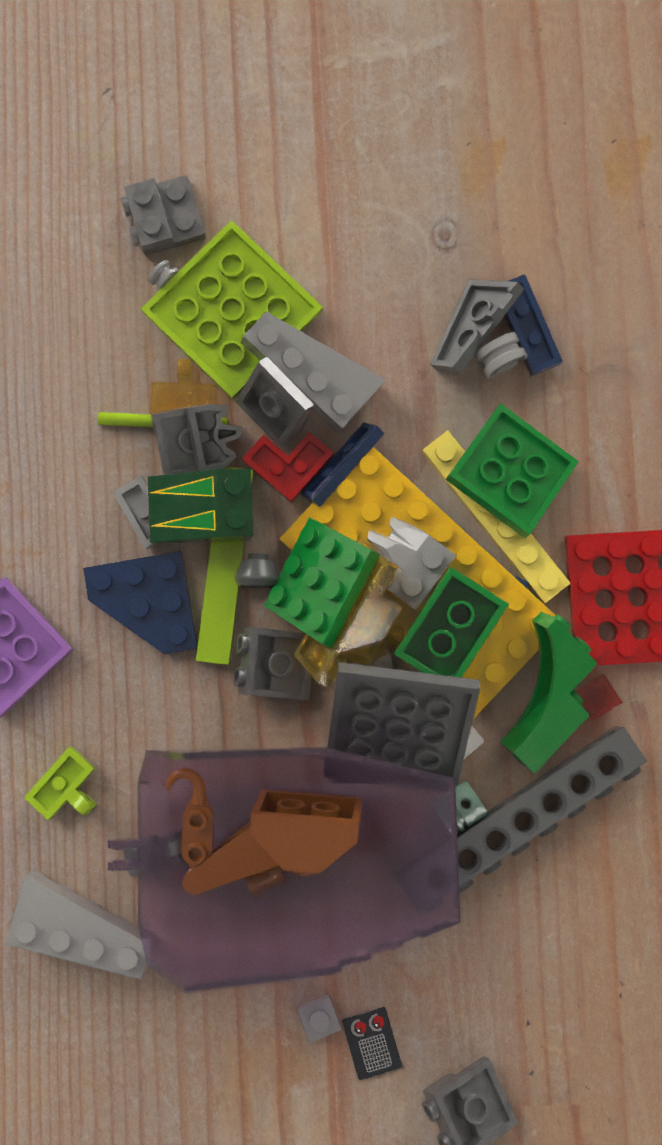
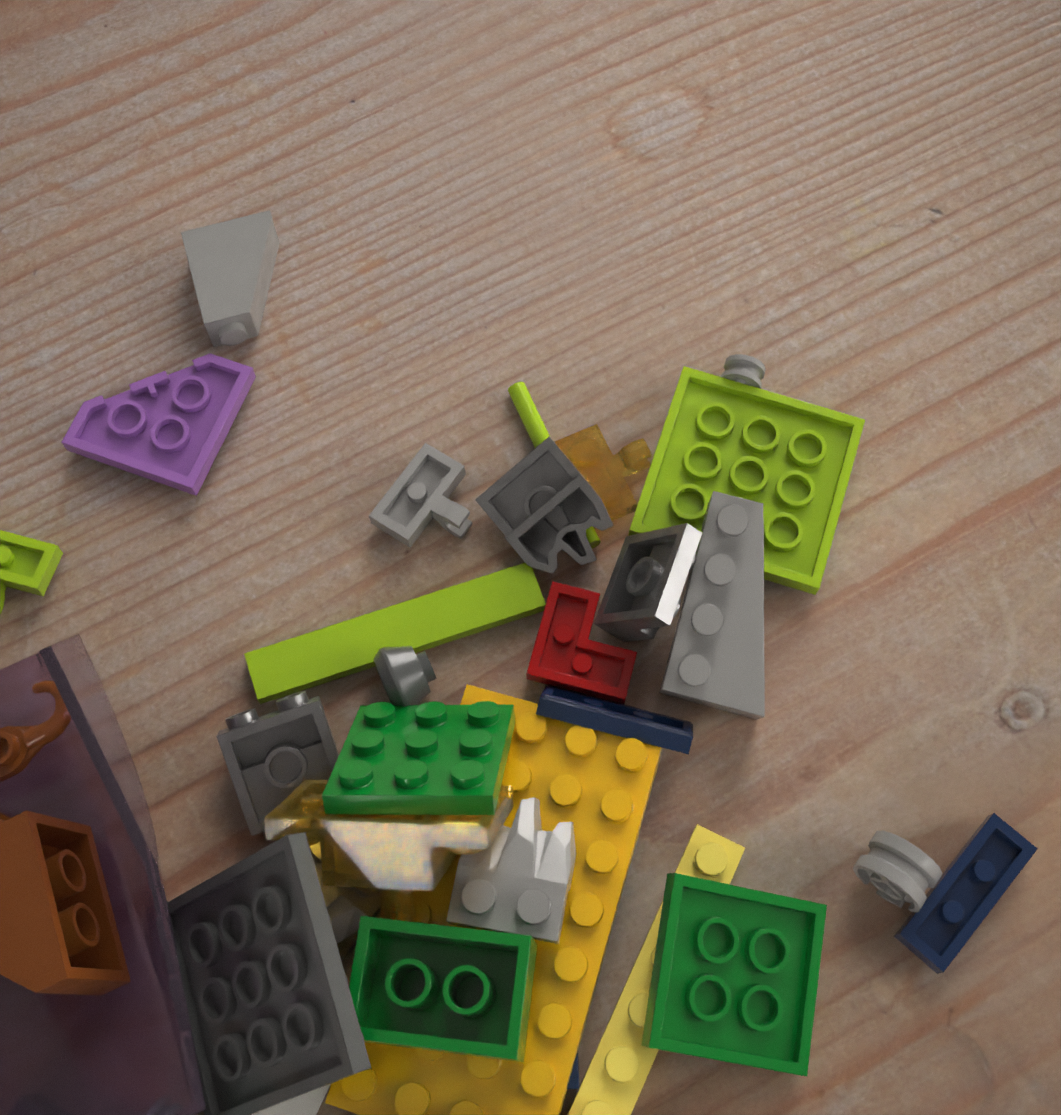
camera: 65 degrees right, 15 degrees down
(147, 598) = (303, 556): dark blue plate -> none
(162, 214) = (821, 339): flat silver plate -> none
(201, 506) = (457, 557): dark green slope -> none
(472, 322) = (922, 805): dark grey wing -> none

